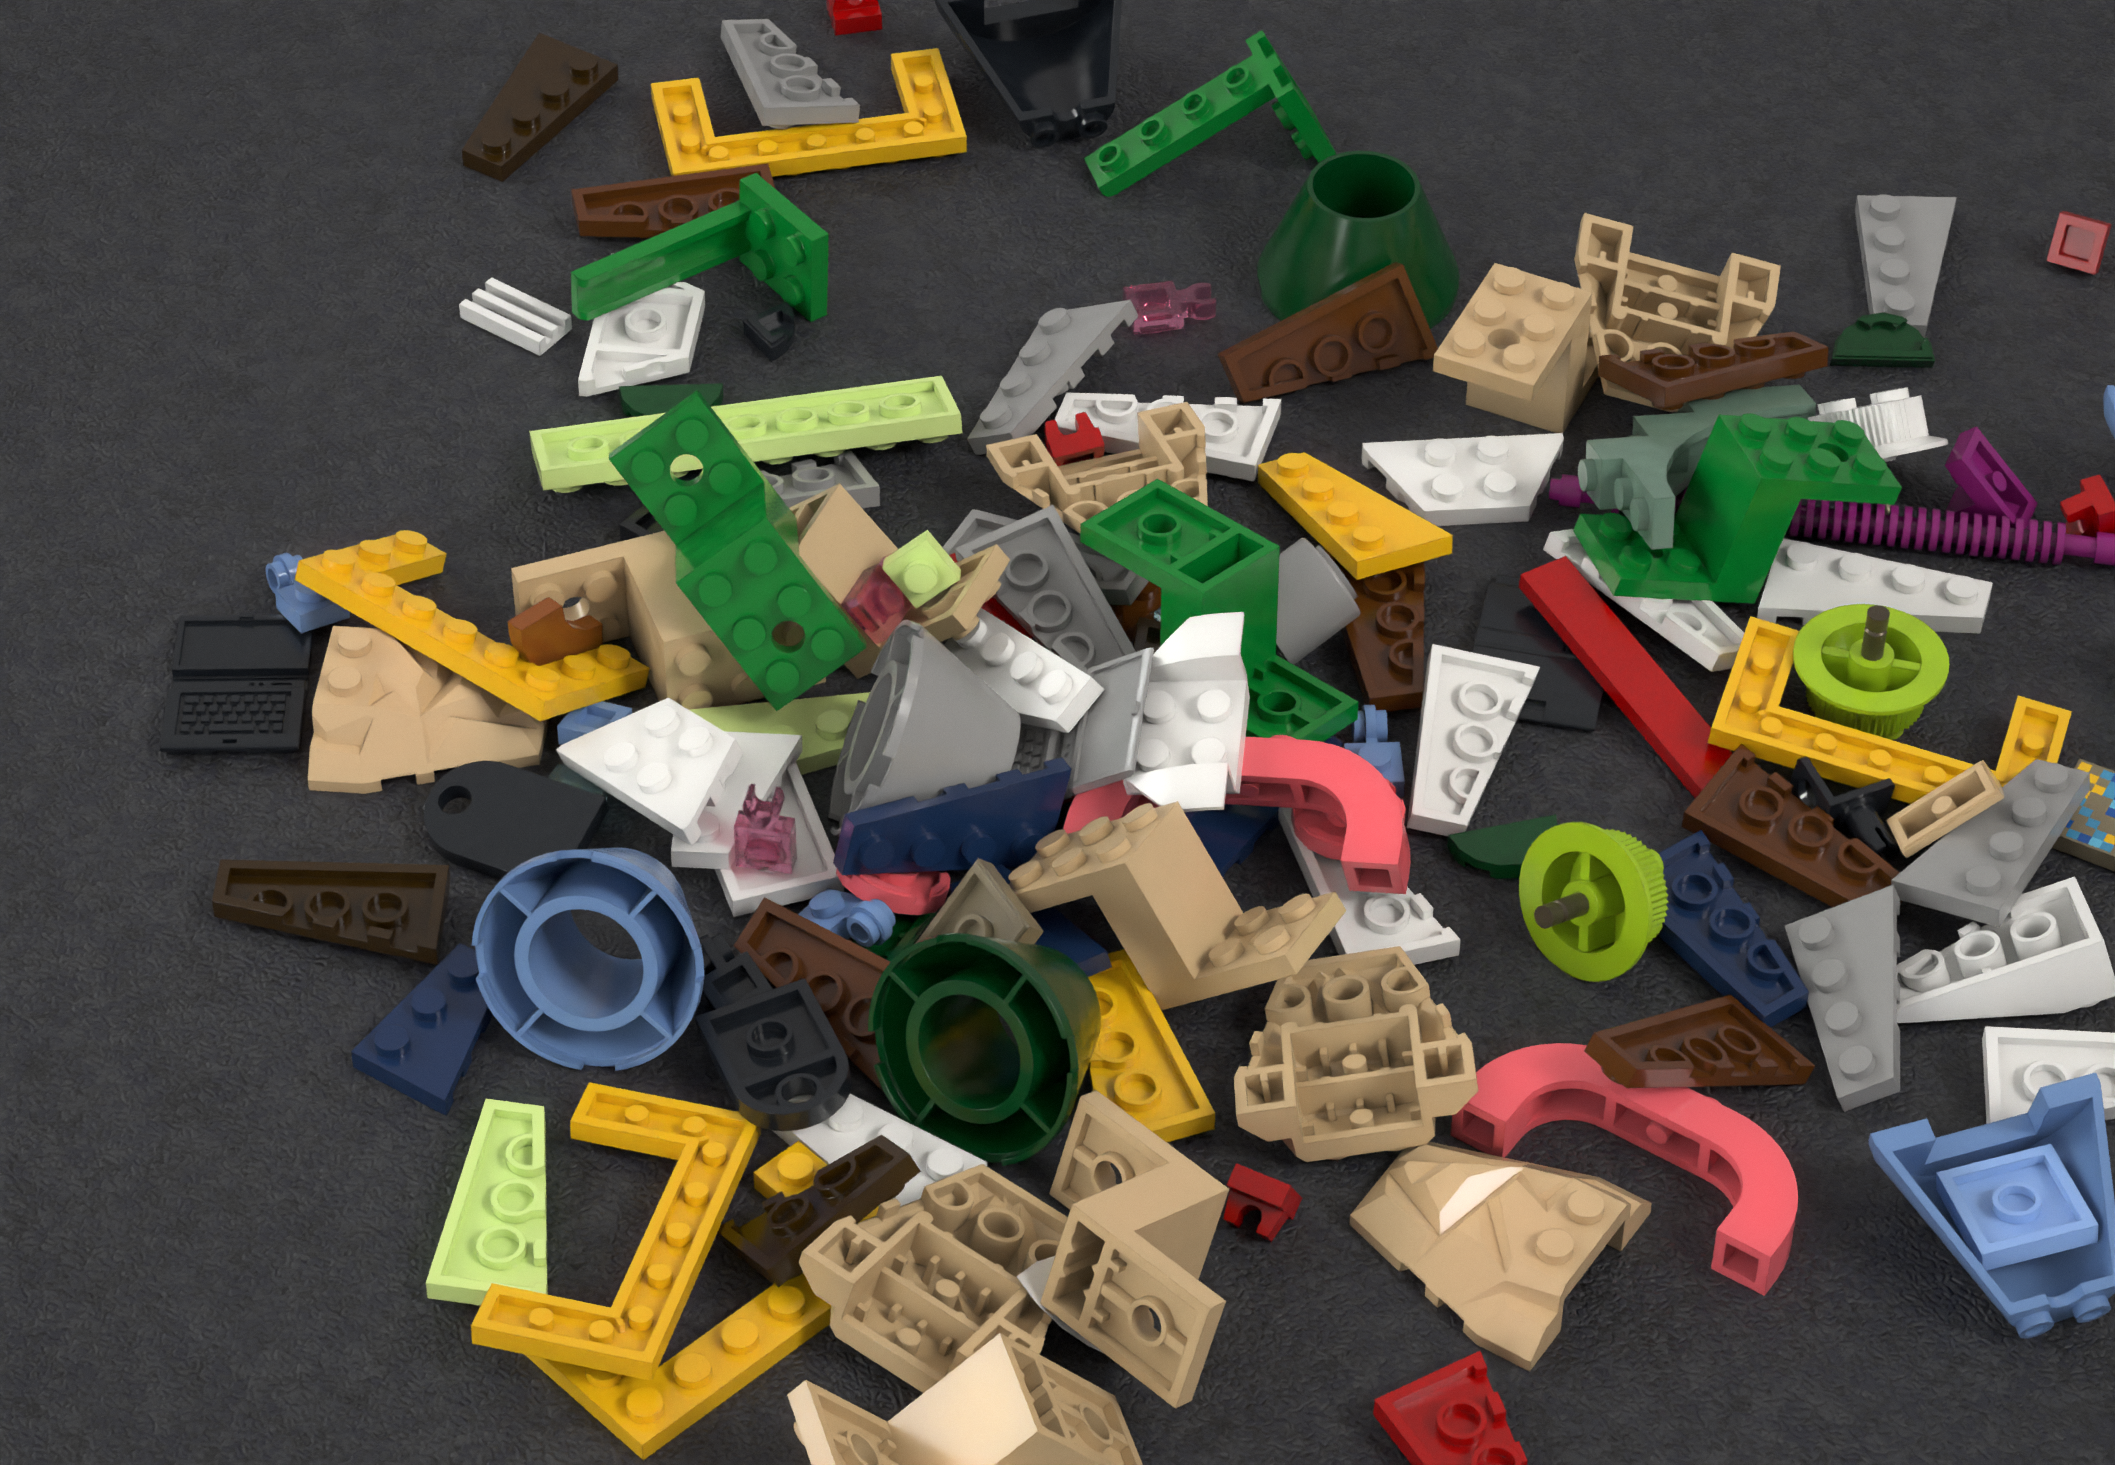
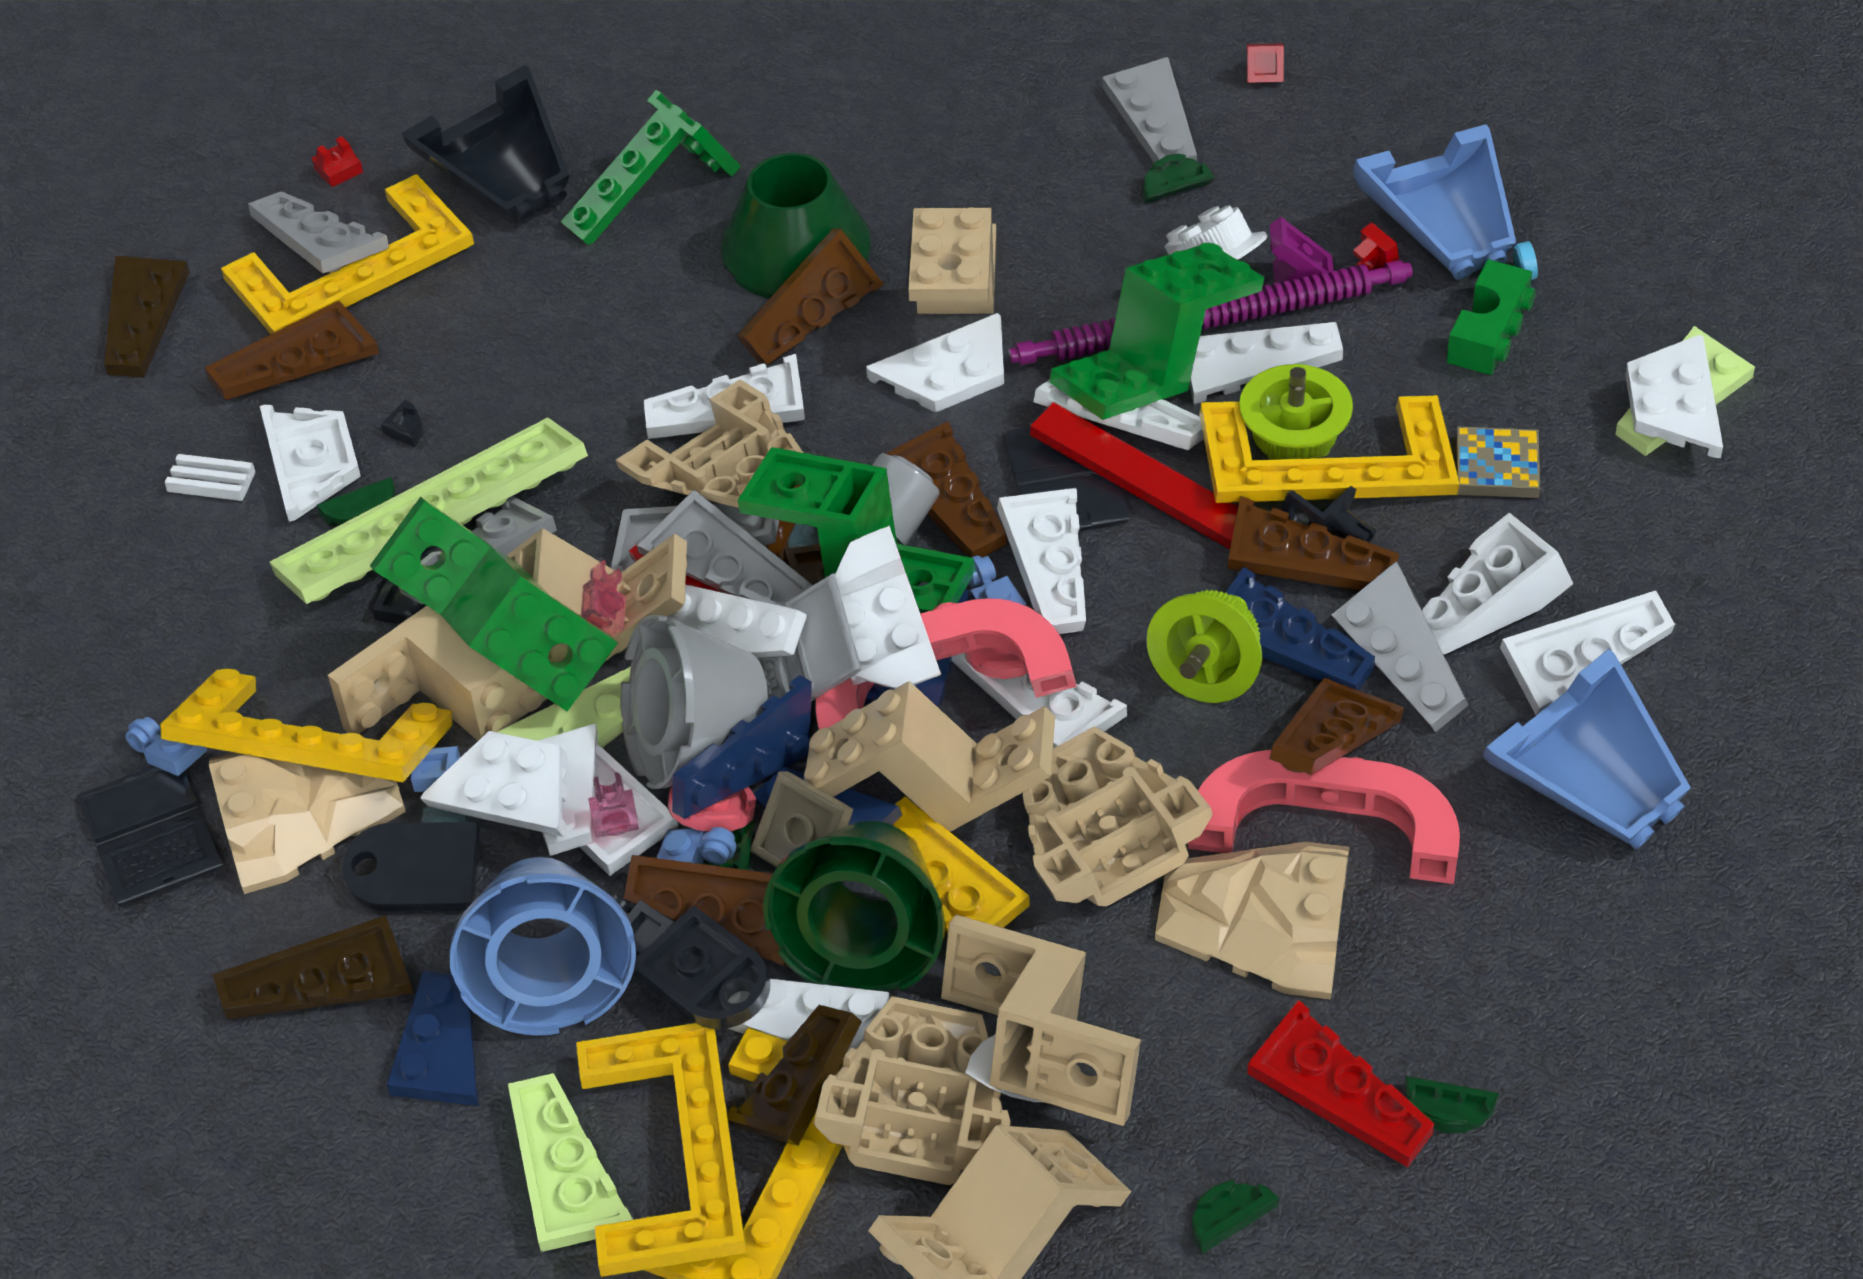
camera: 20 degrees left, 5 degrees up
(546, 636) = (377, 713): dark orange tile -> none
(760, 228) = (365, 354): green bracket -> none
(921, 569) = (627, 570): yellowish green plate -> none
(1048, 368) = (619, 387): light grey wing -> none
(1074, 447) = (678, 433): red tile -> none
(1164, 307) = (677, 314): clear pink plate -> none
(1263, 1193) = (1096, 943): red tile -> none
(1350, 519) = (889, 424): yellow wing -> none
(1500, 846) = (1119, 626): dark green tile -> none
(1659, 458) = (1088, 298): sand green arch -> none
(1663, 305) = (1036, 210): tan wedge -> none
(1714, 368) = (1082, 234): reddish brown wing -> none
(1945, 808) = (1400, 495): tan slope -> none
(1993, 856) = (1445, 510): light grey wing -> none
(2017, 1207) = (1593, 759): light blue plate -> none

